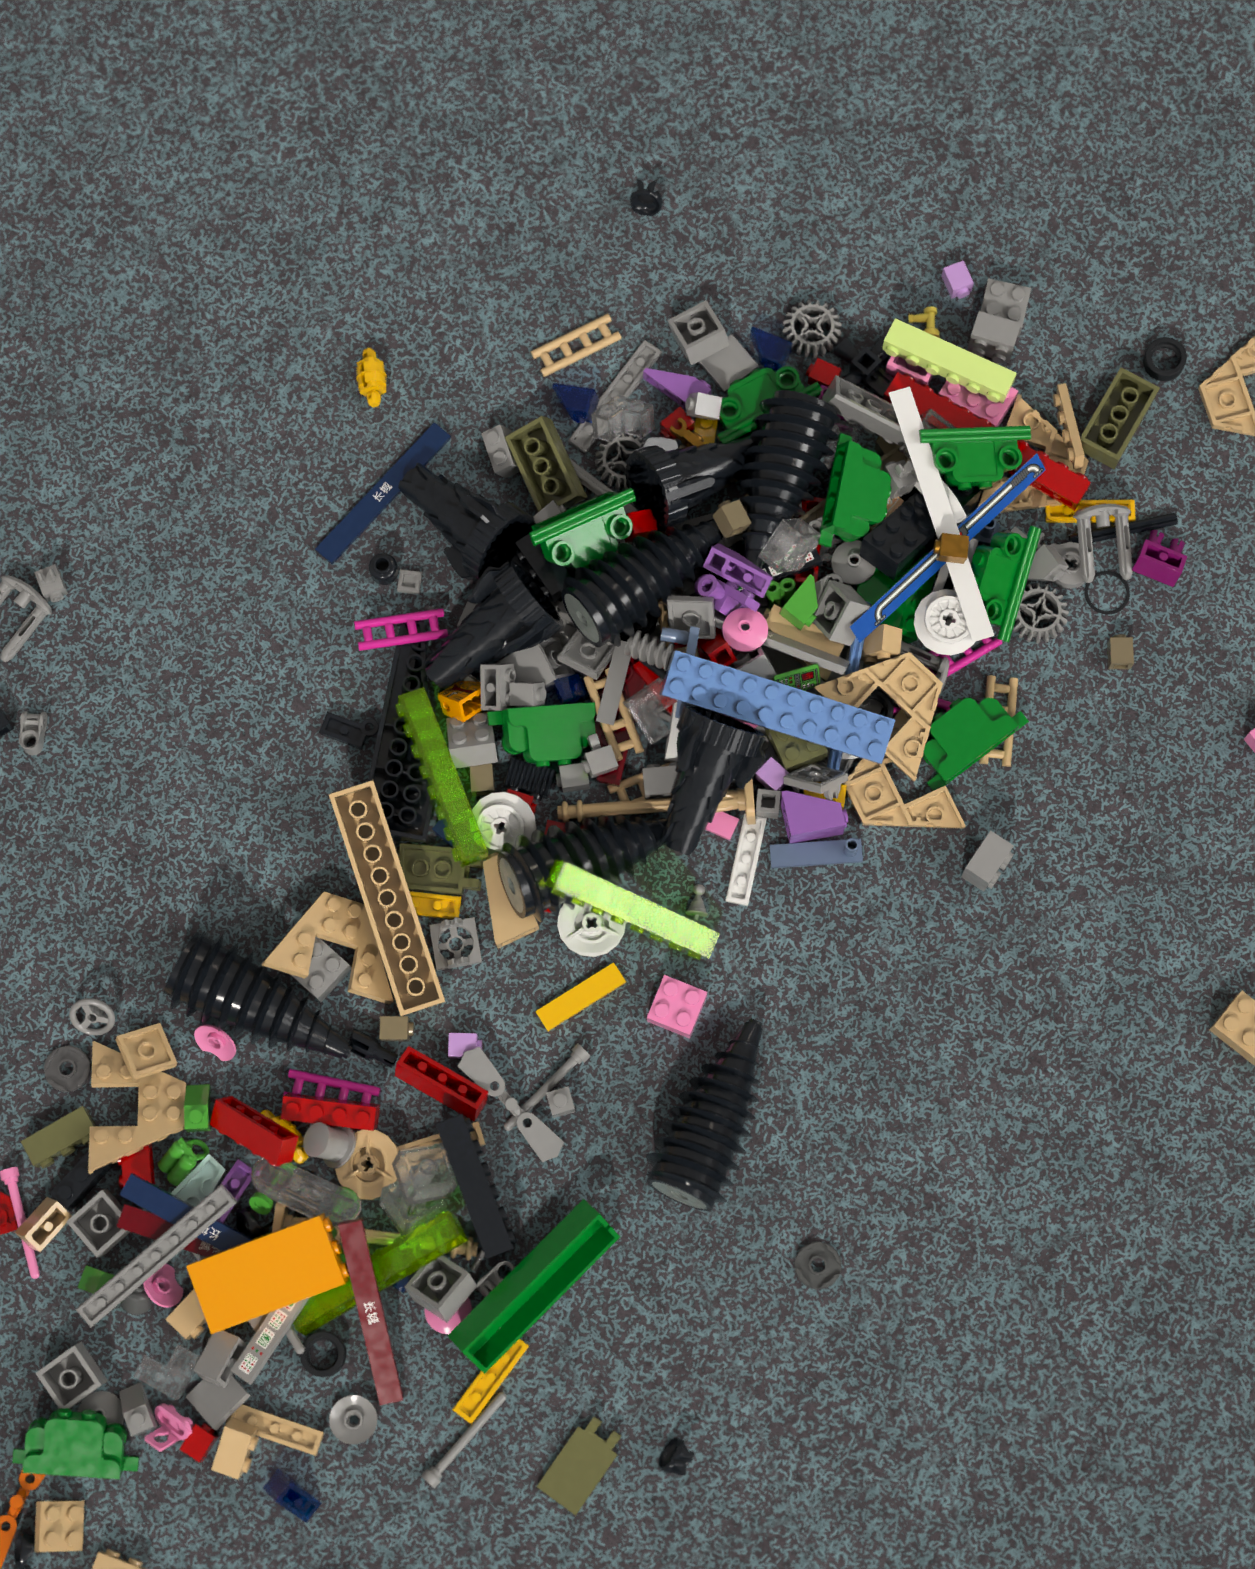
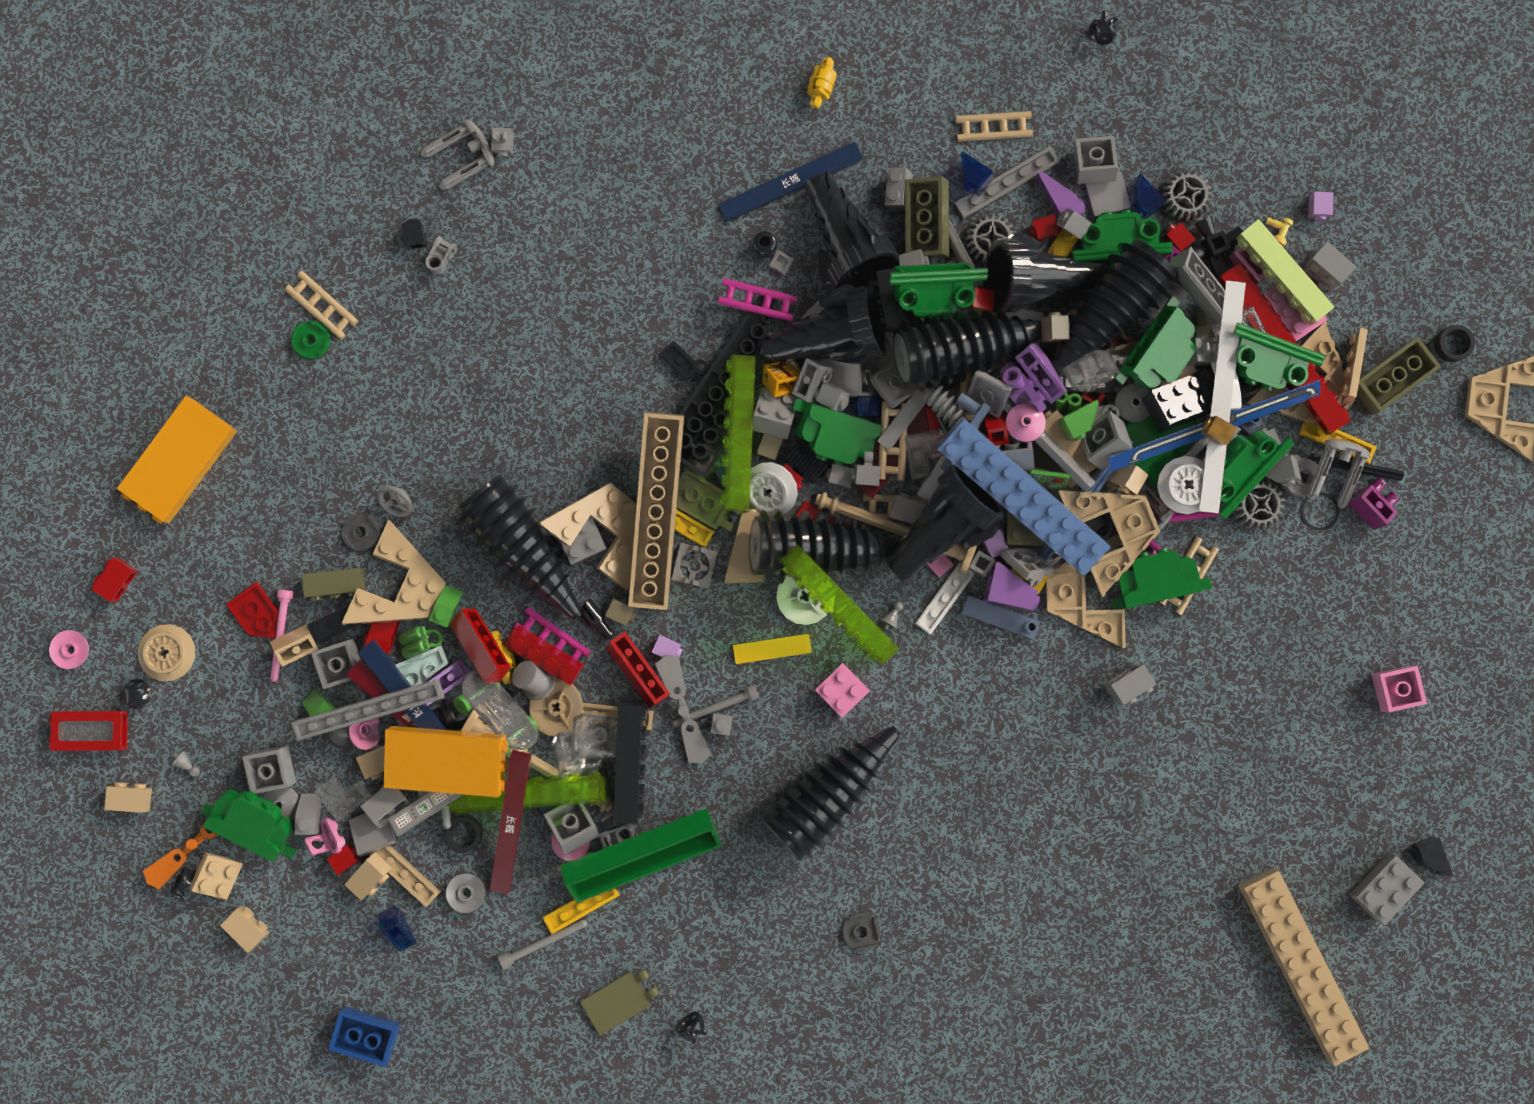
camera: 15 degrees right, 10 degrees up
(146, 1051) = (424, 546): tan plate -> none
(215, 1041) = (483, 565): bright pink dish -> none
(622, 416) = (1005, 203): clear brick -> none
(686, 436) = (1048, 243): pearl gold plate -> none
(1006, 300) = (1351, 240): light grey brick -> none
(1120, 652) = (1308, 564): dark tan brick -> none

